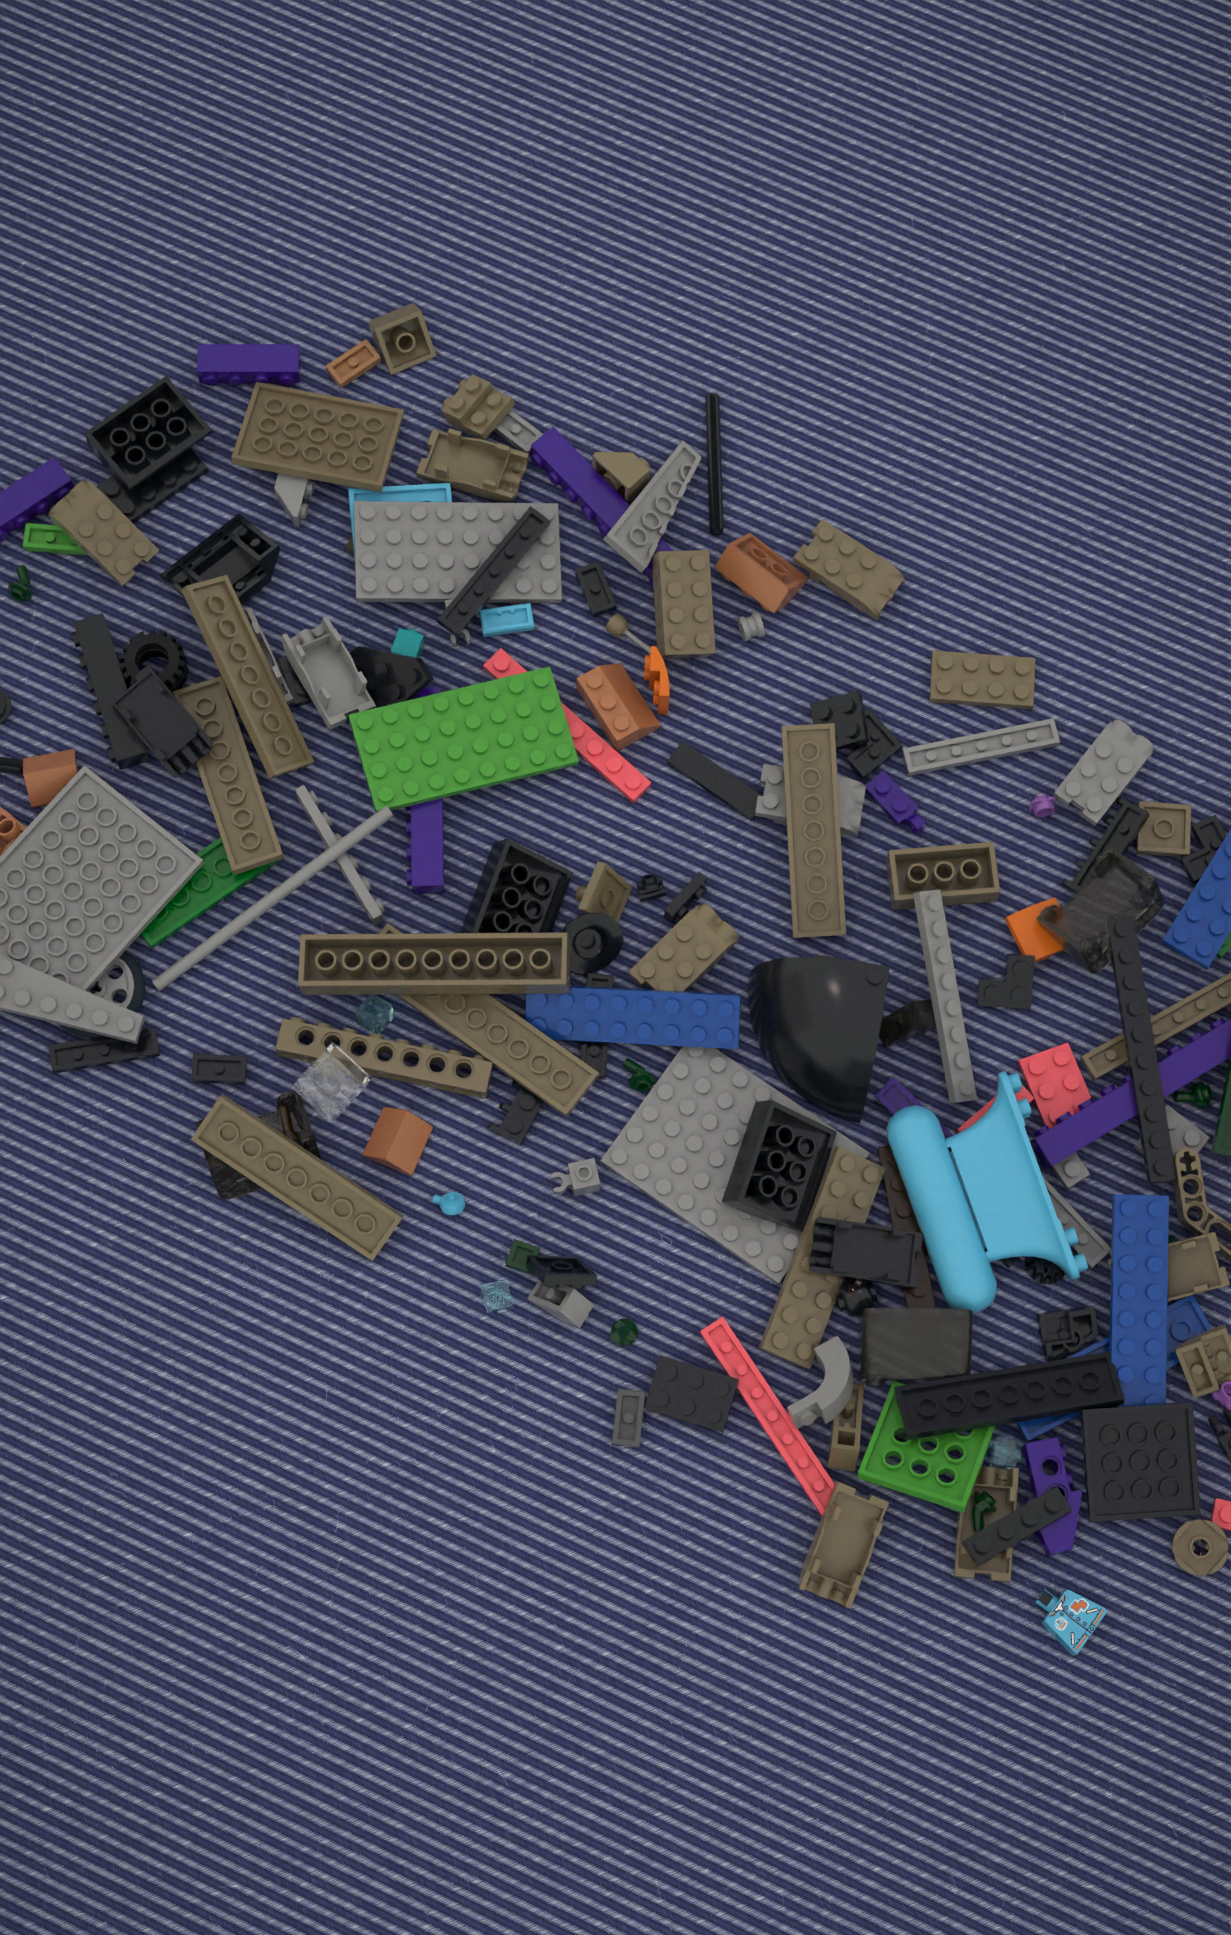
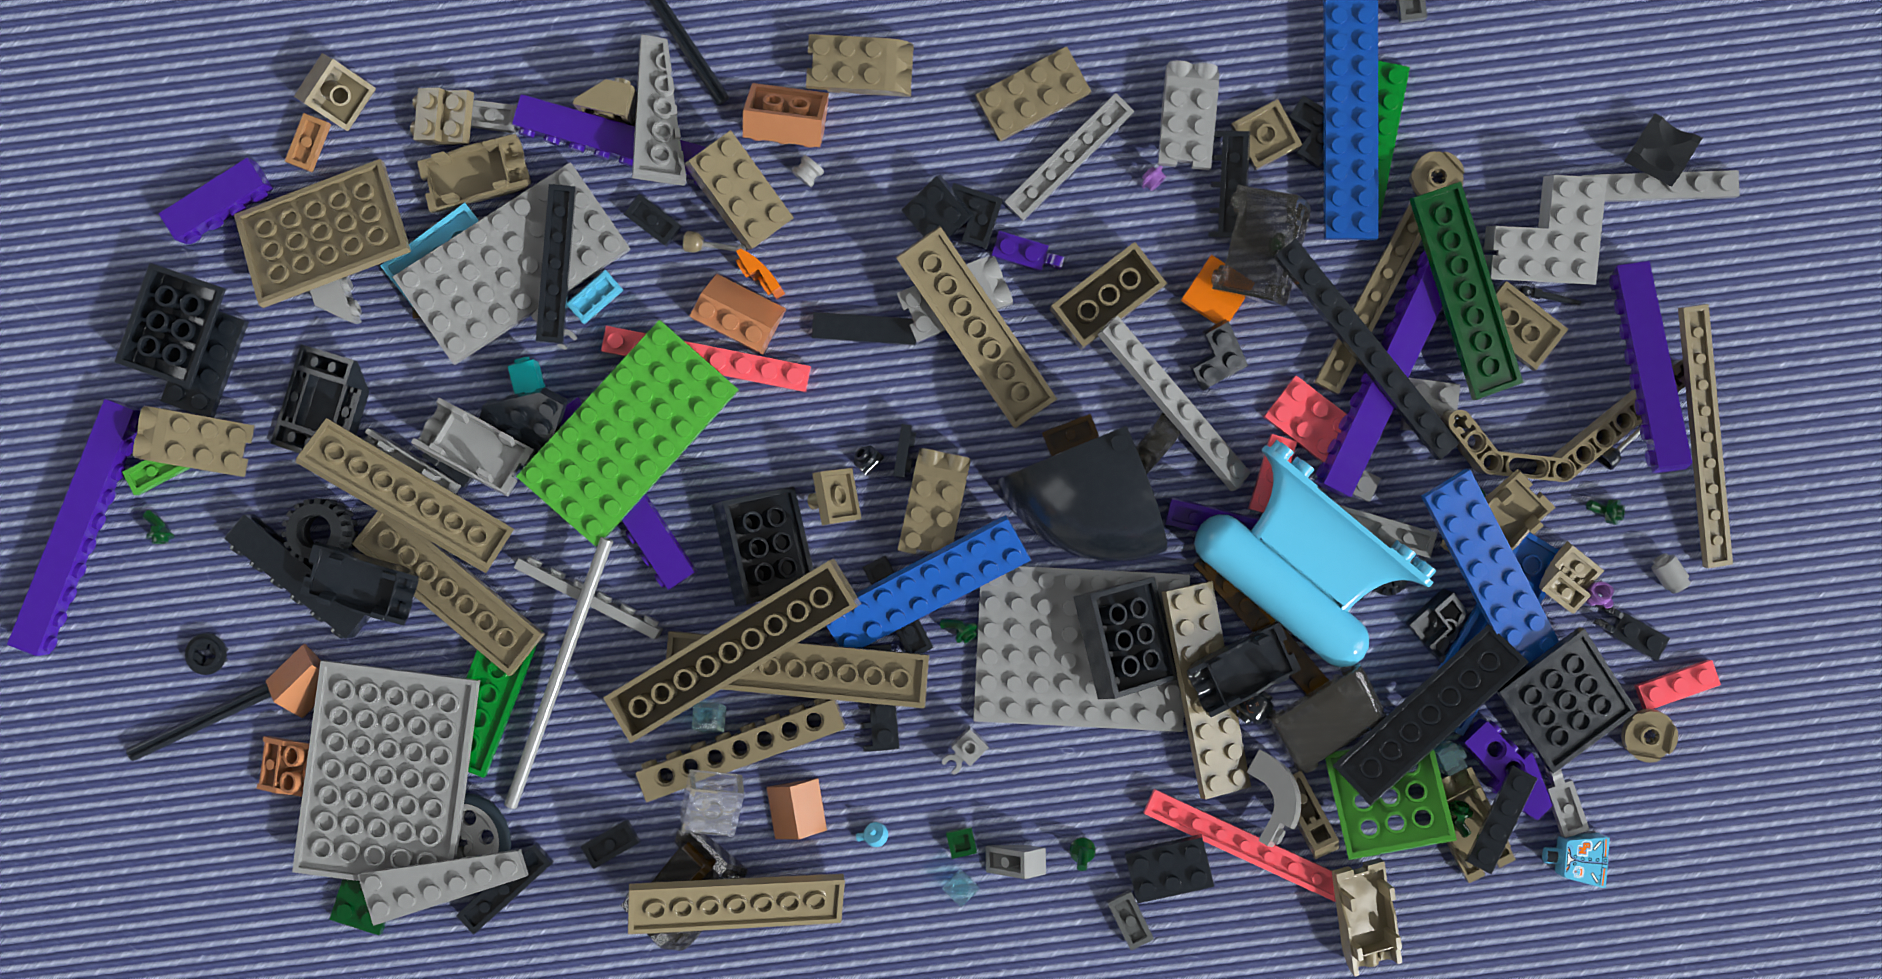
camera: 30 degrees left, 15 degrees up
(561, 1271) = (1003, 841): black plate -> none
(594, 942) = (849, 542): black hat -> none
(1086, 1561) = (1566, 805): none -> light grey plate
(1200, 1096) = (1432, 352): dark green plate -> none

